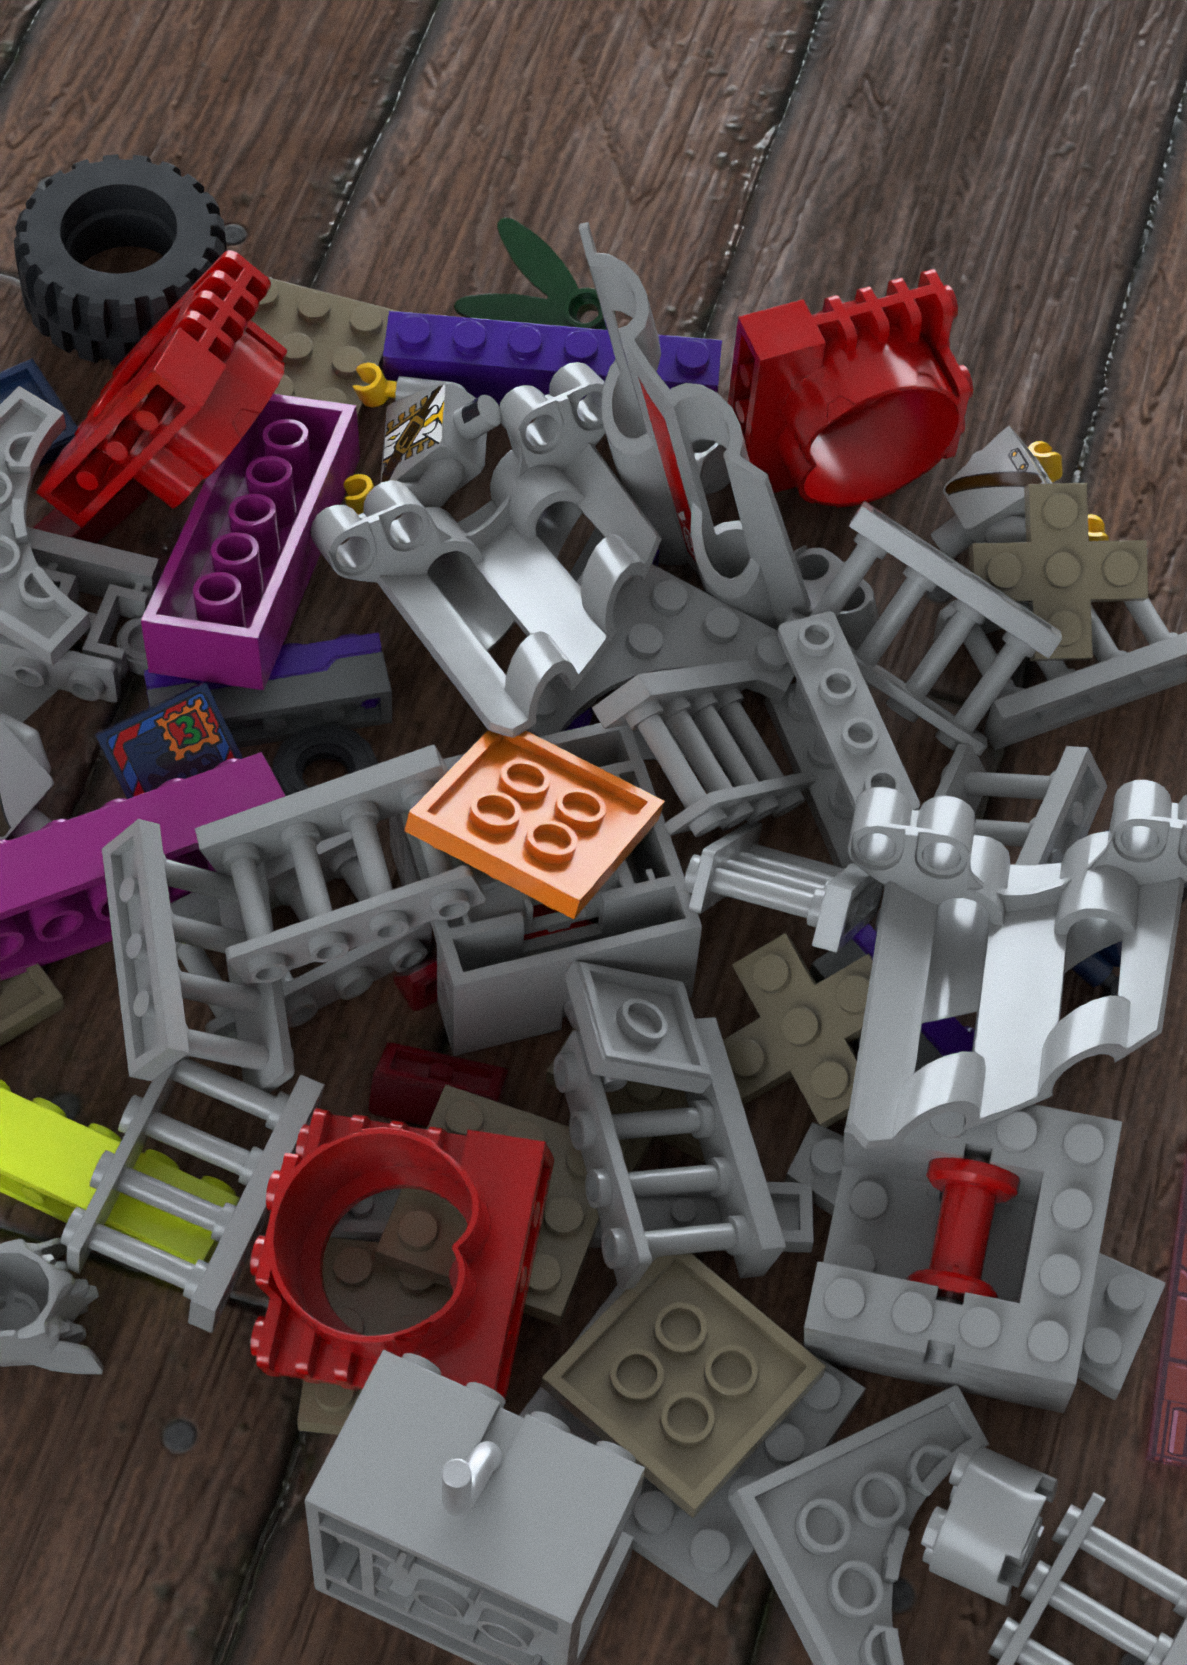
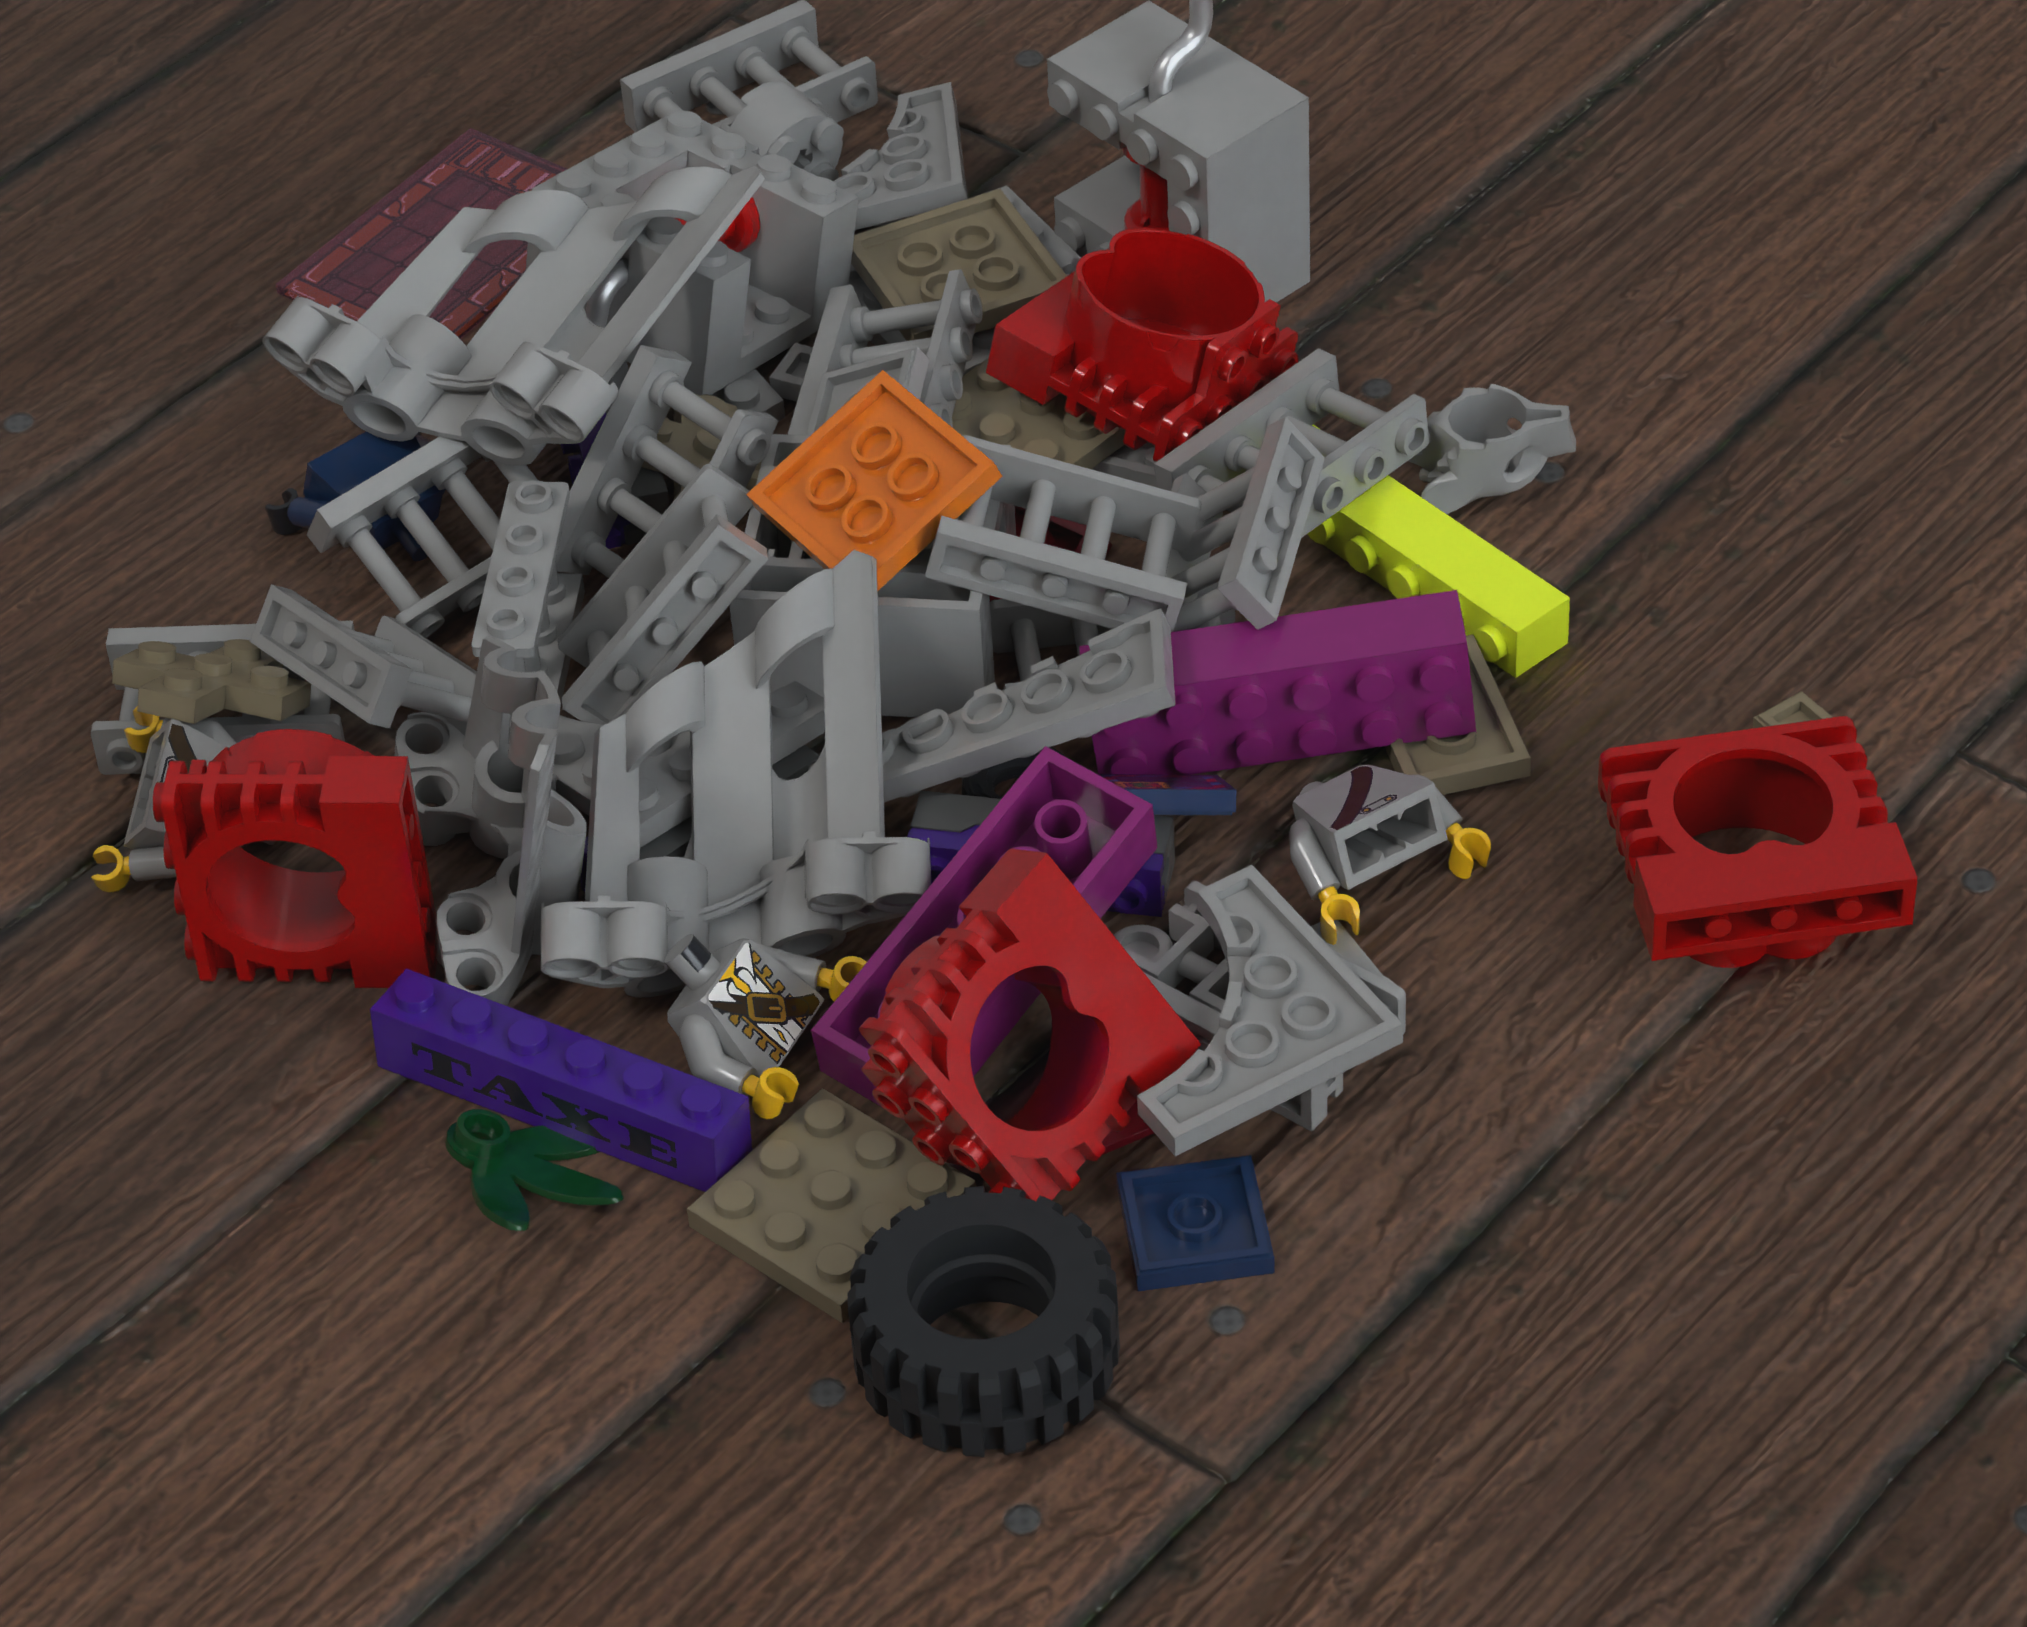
camera: 150 degrees left, 15 degrees down
(290, 727) = (1116, 681): none -> light grey wing

